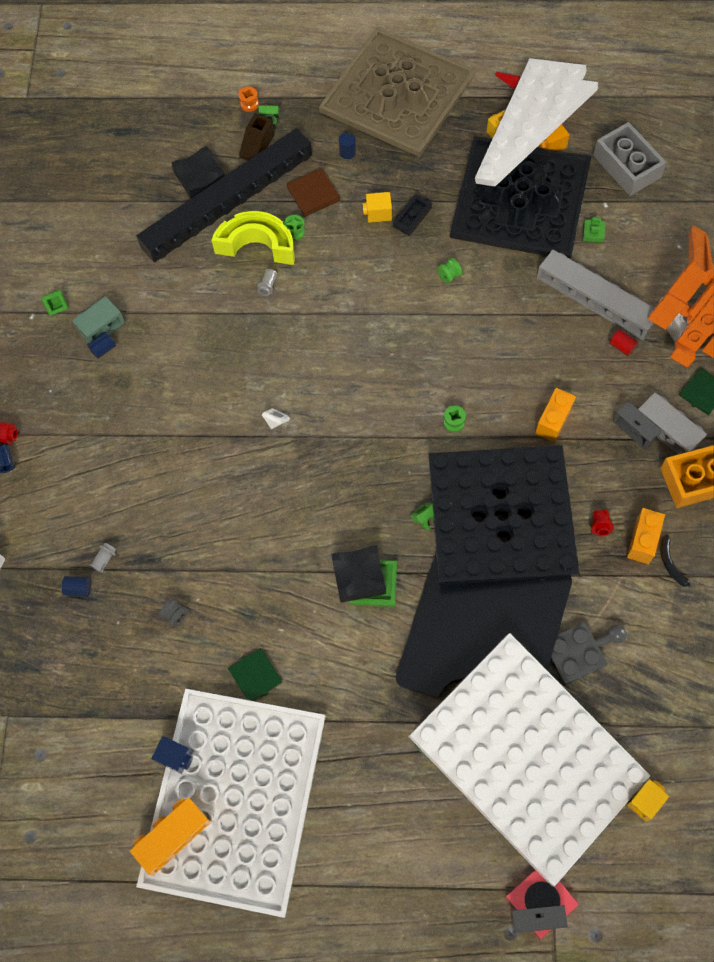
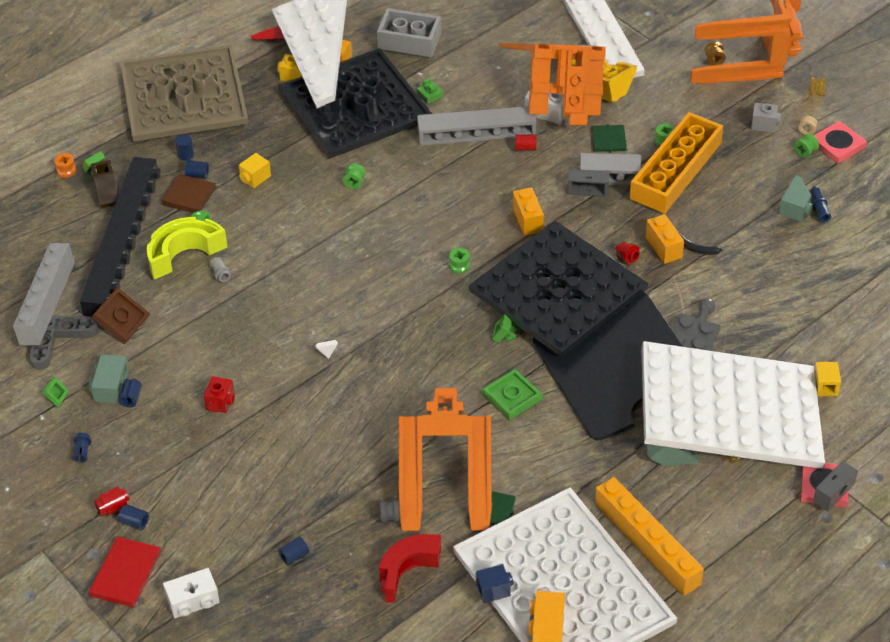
camera: 45 degrees left, 20 degrees down
(27, 366) = (82, 443): none -> dark blue pin
(103, 557) = (292, 516): light grey pin -> none
(104, 246) = (55, 330): none -> dark grey beam
(119, 209) = (44, 294): none -> light grey brick
(140, 663) = (404, 555): none -> red arch
(155, 270) = (120, 315): none -> reddish brown tile
(156, 399) = (219, 394): none -> red brick
(197, 171) = (82, 234): black brick -> none
(249, 569) = (445, 424): none -> orange piece
(338, 173) = (197, 169): none -> dark blue piece
(339, 819) = (649, 536): none -> light orange brick
(358, 574) = (500, 388): black brick -> none
(412, 215) = (285, 160): black plate -> none

